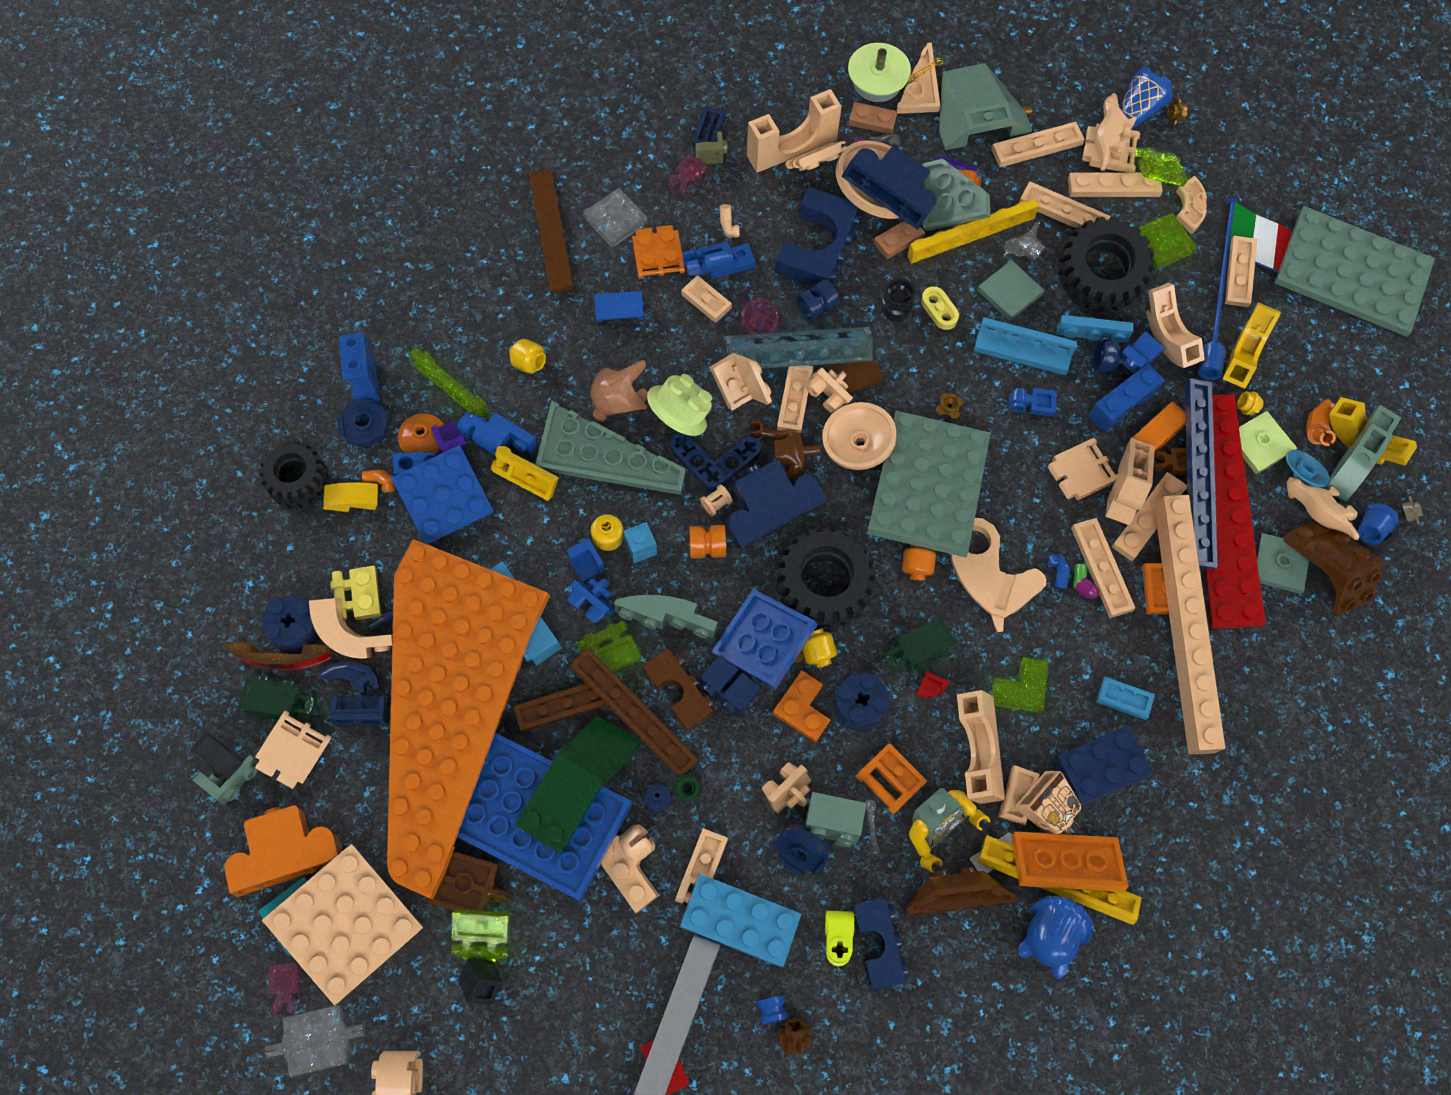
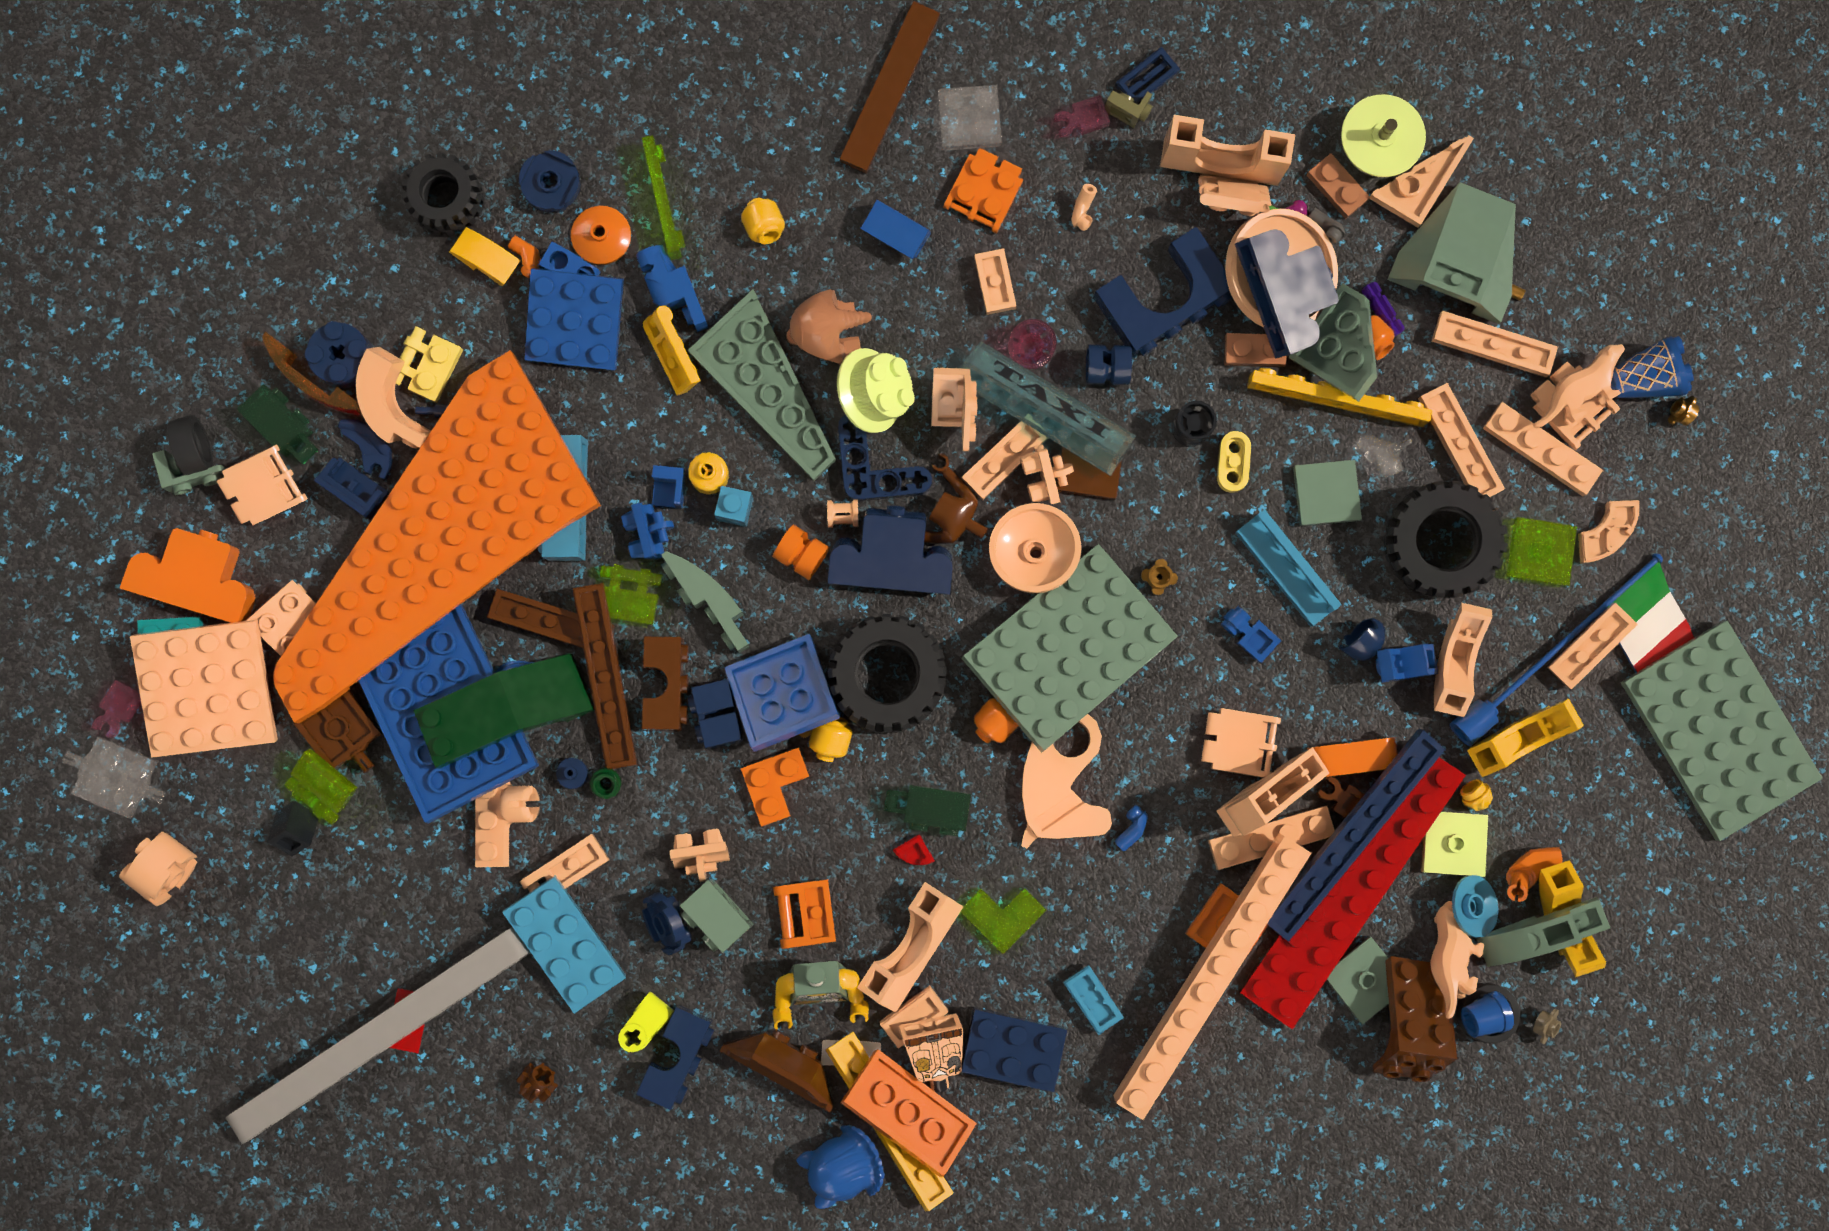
camera: 30 degrees right, 15 degrees up
(359, 366) = (579, 121): blue panel -> none
(369, 831) = (283, 616): none -> light nougat hinge
(447, 437) = (620, 259): dark purple panel -> none
(718, 260) = (1039, 246): blue plate -> none
(772, 1010) = (535, 1045): blue wheel -> none
(863, 688) = (820, 806): dark blue brick -> none
(870, 806) = (740, 968): clear hinge -> none
(938, 61) = (1461, 168): clear yellow hinge -> none
(1082, 584) = (1144, 858): arm -> none
(1094, 328) = (1378, 601): dark azure plate -> none
(1103, 568) = (1178, 856): light nougat plate -> none
(1122, 399) = (1348, 699): blue arch -> none
(1161, 166) = (1602, 471): clear neon green plate -> none

